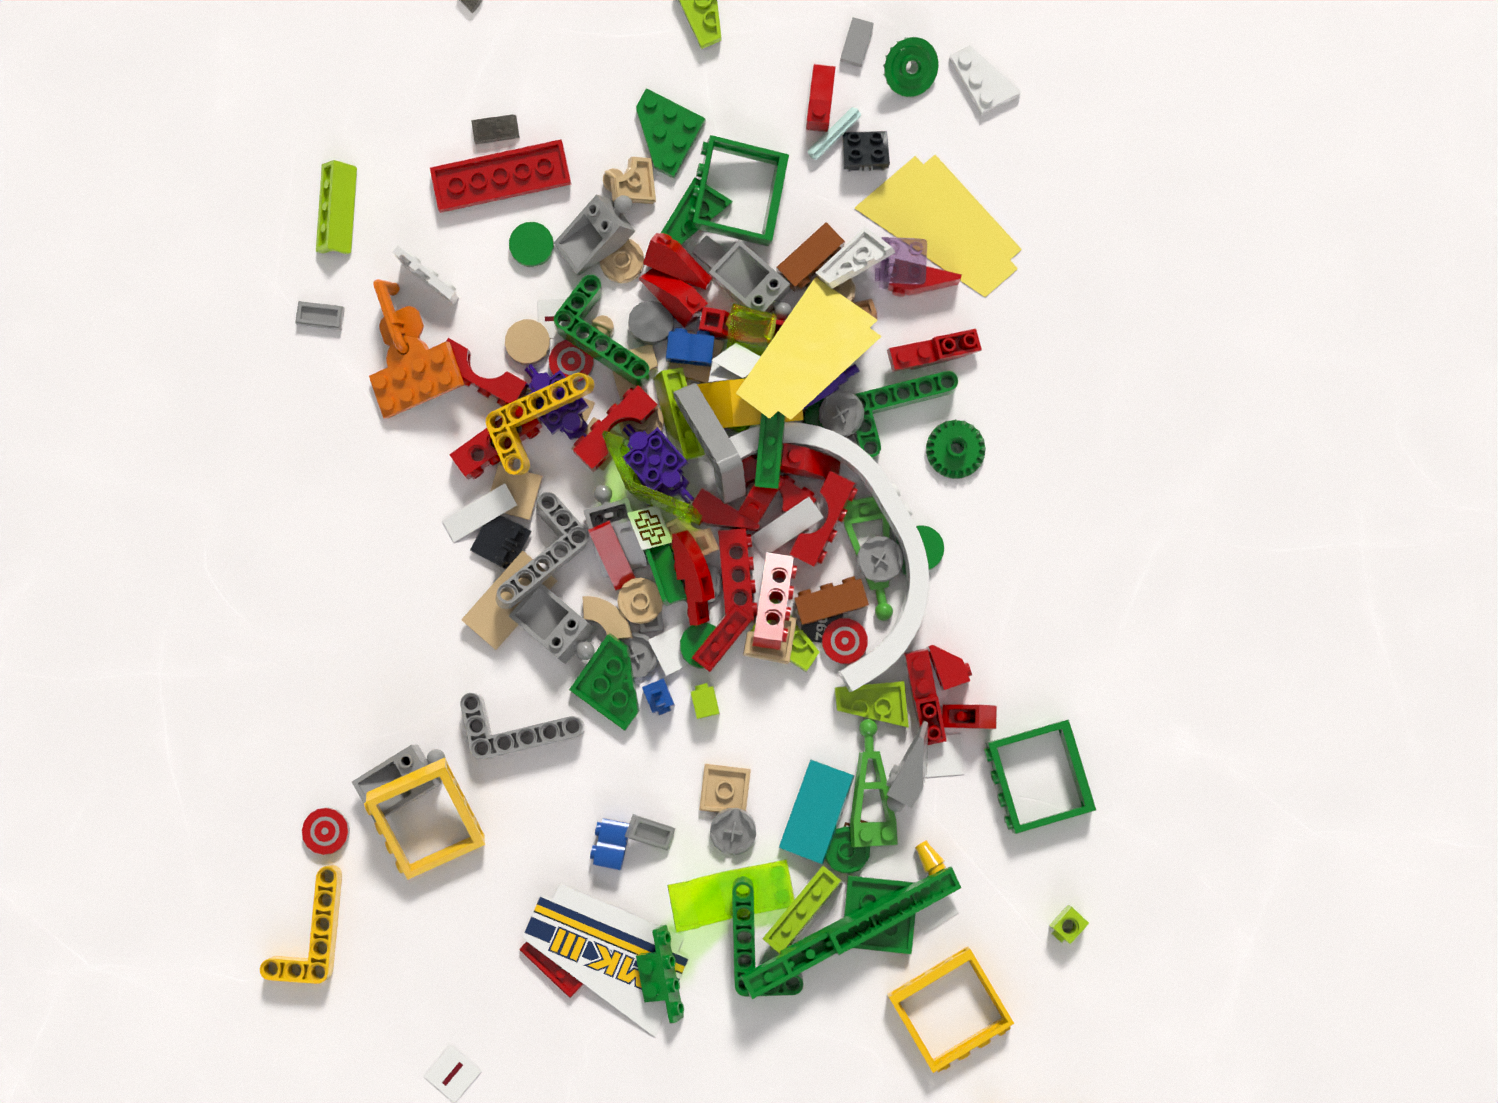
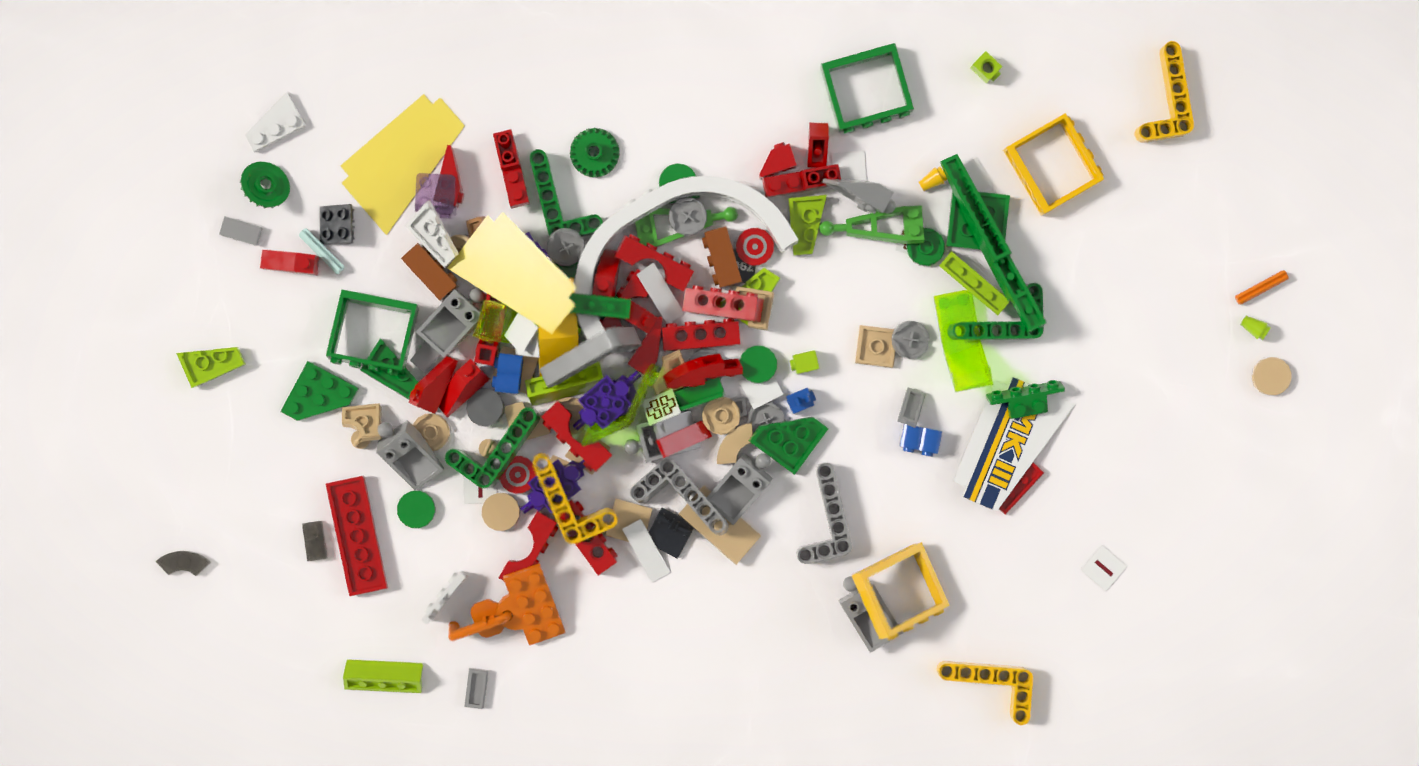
camera: 90 degrees left, 5 degrees up
(325, 831) = (909, 674): red tile -> none
(722, 637) = (752, 347): red tile -> none
(816, 811) = (894, 271): teal tile -> none

